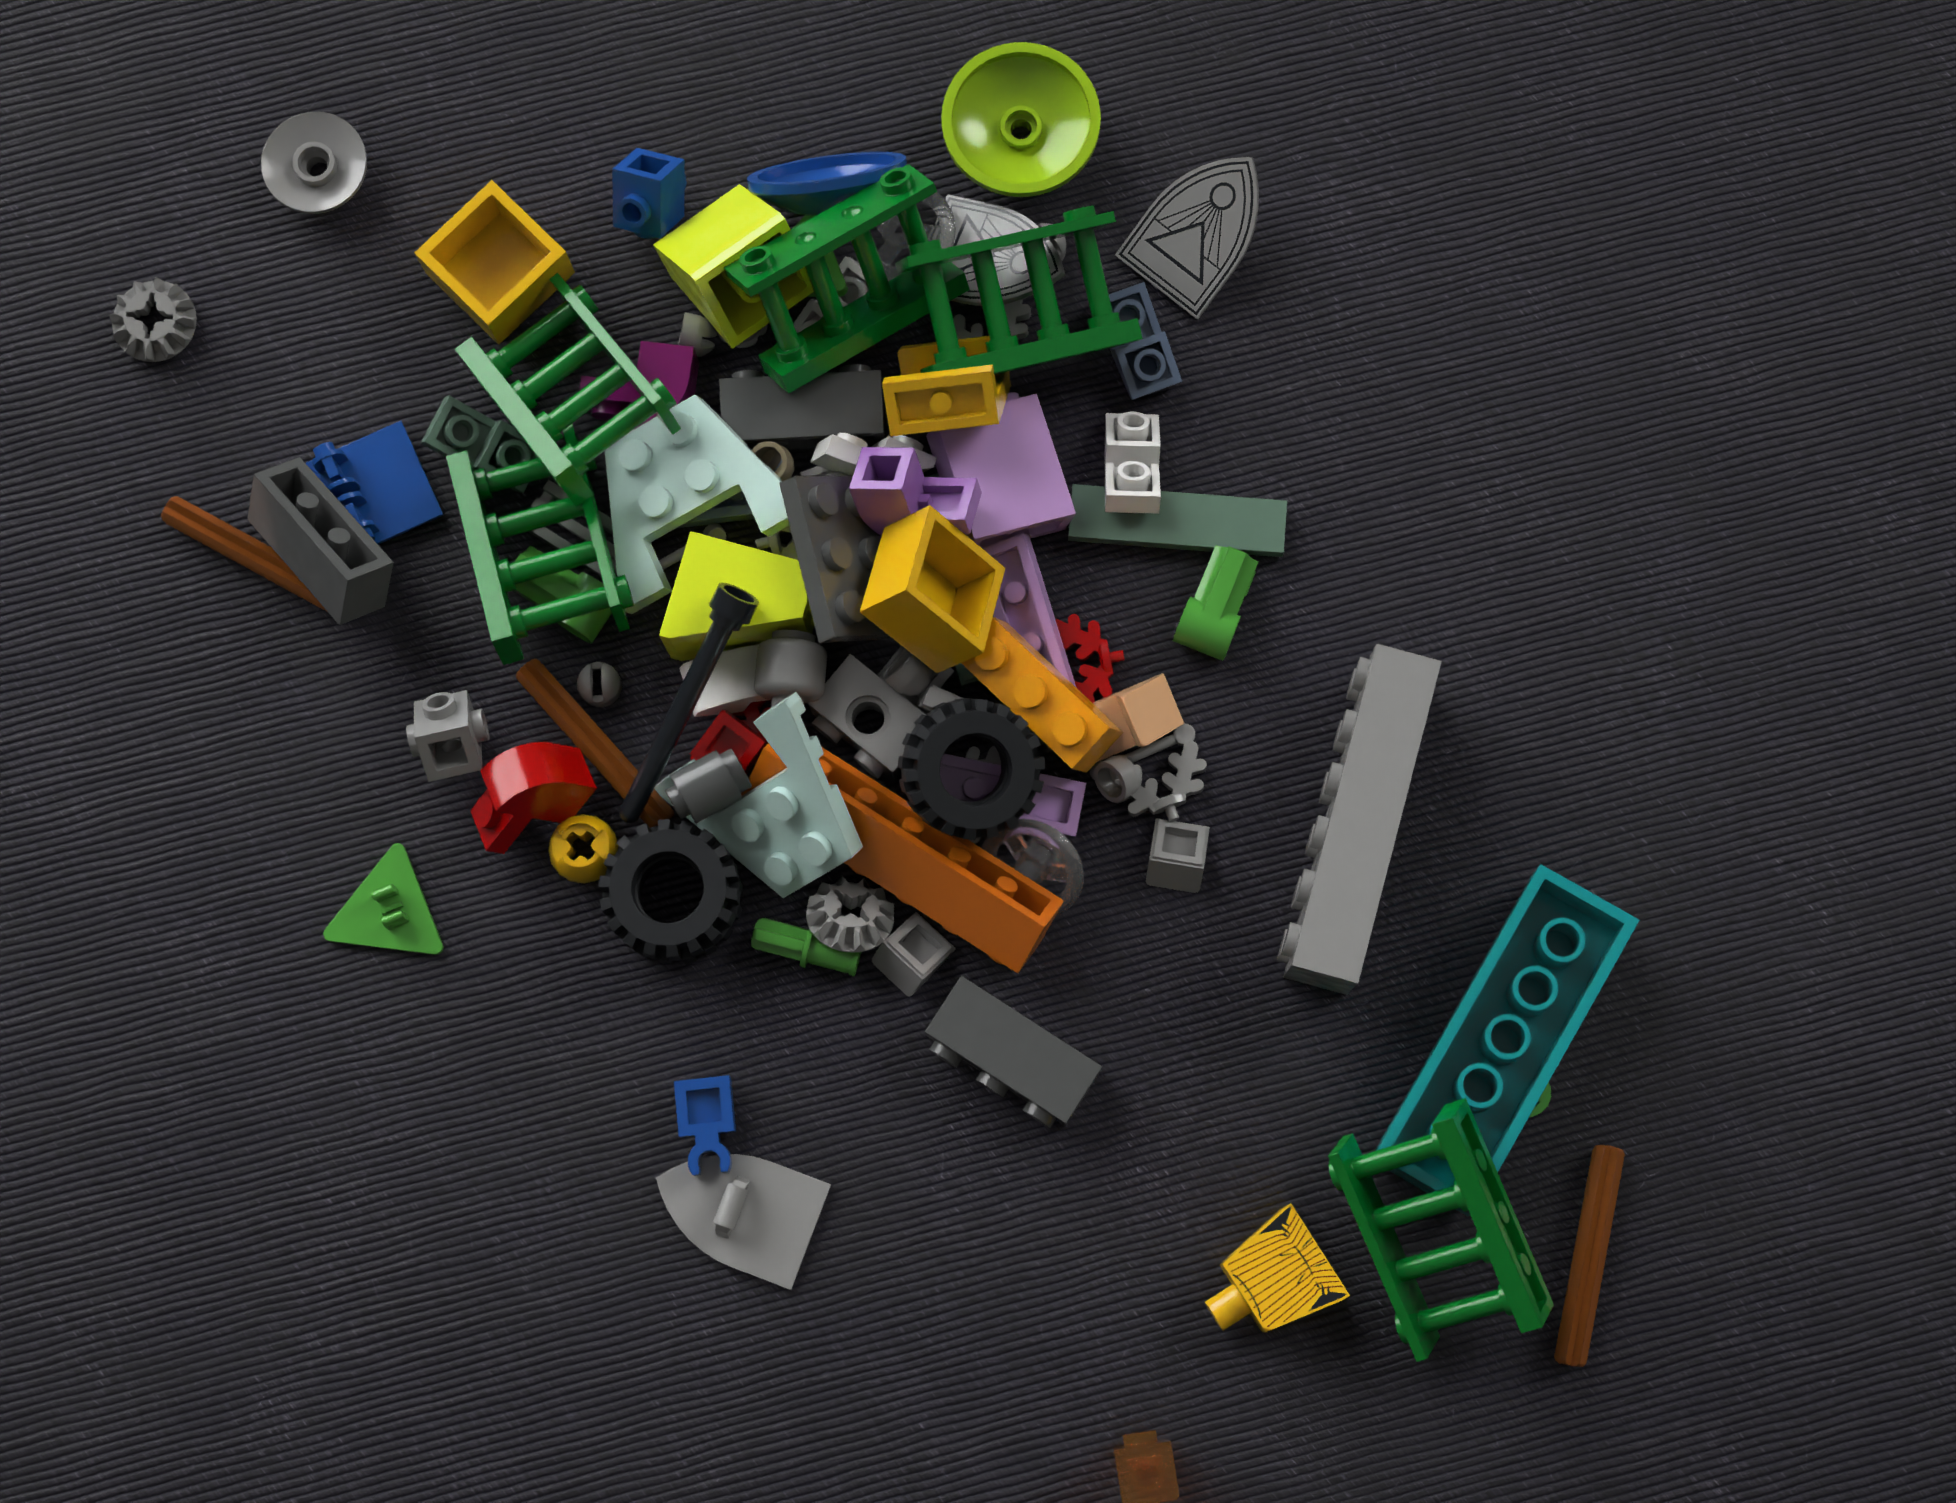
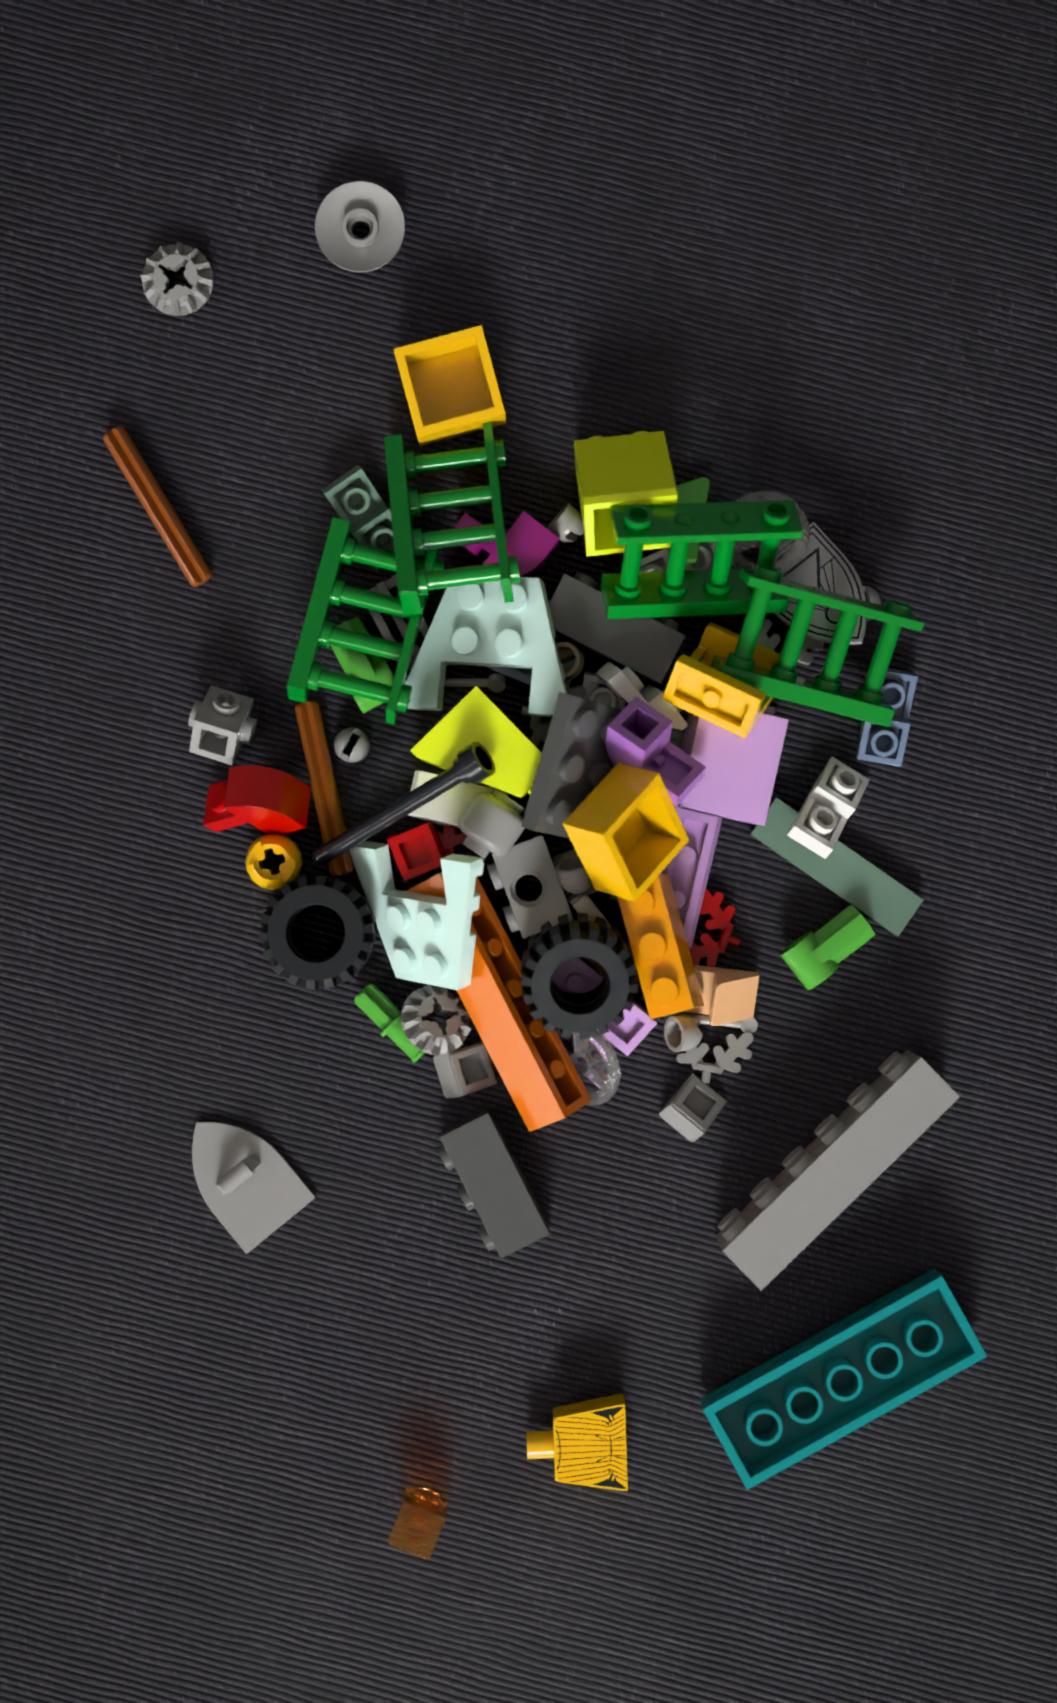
camera: 30 degrees right, 10 degrees up
(319, 540) = (206, 527): dark grey brick -> none
(379, 482) = (268, 503): blue hinge -> none
(388, 910) = (112, 822): bright green piece -> none
(648, 193) = (593, 398): blue brick -> none
(705, 1112) = (254, 1100): blue plate -> none
(708, 785) = (385, 875): dark grey brick -> none
(820, 182) = (729, 466): blue dish -> none
(1027, 89) = (924, 482): lime dish -> none
(1196, 232) = (978, 662): light grey shield -> none
(1475, 1191) = (756, 1480): green fence -> none
(1589, 1255) = (811, 1552): dark orange axle -> none

